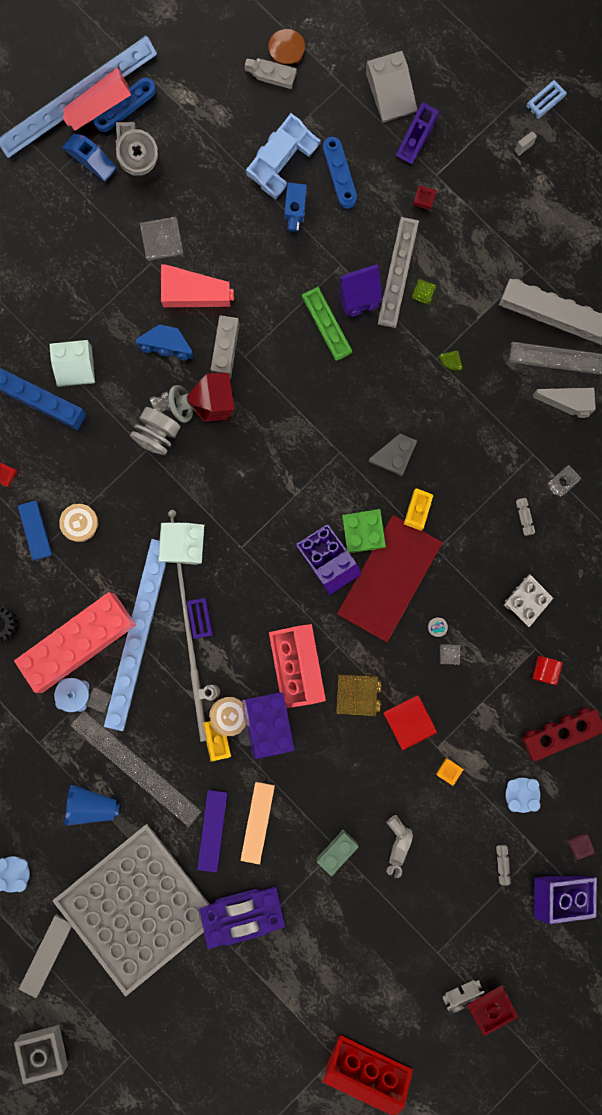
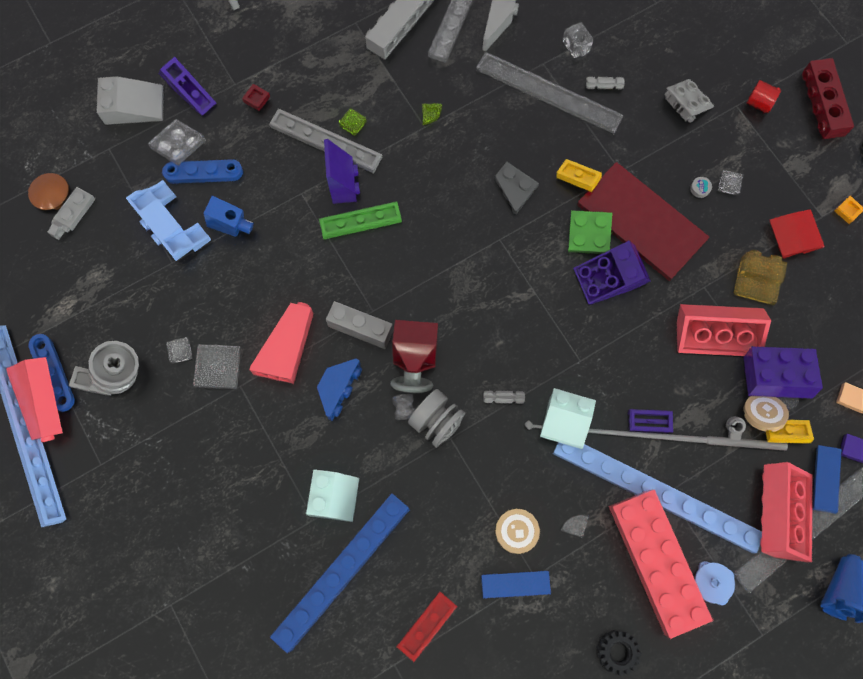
camera: 75 degrees left, 10 degrees down
(90, 156) = (96, 423): blue slope -> none
(94, 570) = (576, 525): none -> clear tile
(99, 700) = (724, 552): clear tile -> none
(142, 746) = (787, 512): none -> coral slope
(169, 203) = (179, 350): none -> clear plate
(181, 779) = (827, 479): none -> blue tile
(191, 486) = (504, 397): none -> light grey axle
(360, 140) = (177, 142): none -> clear plate
(502, 466) = (550, 92): none -> clear tile

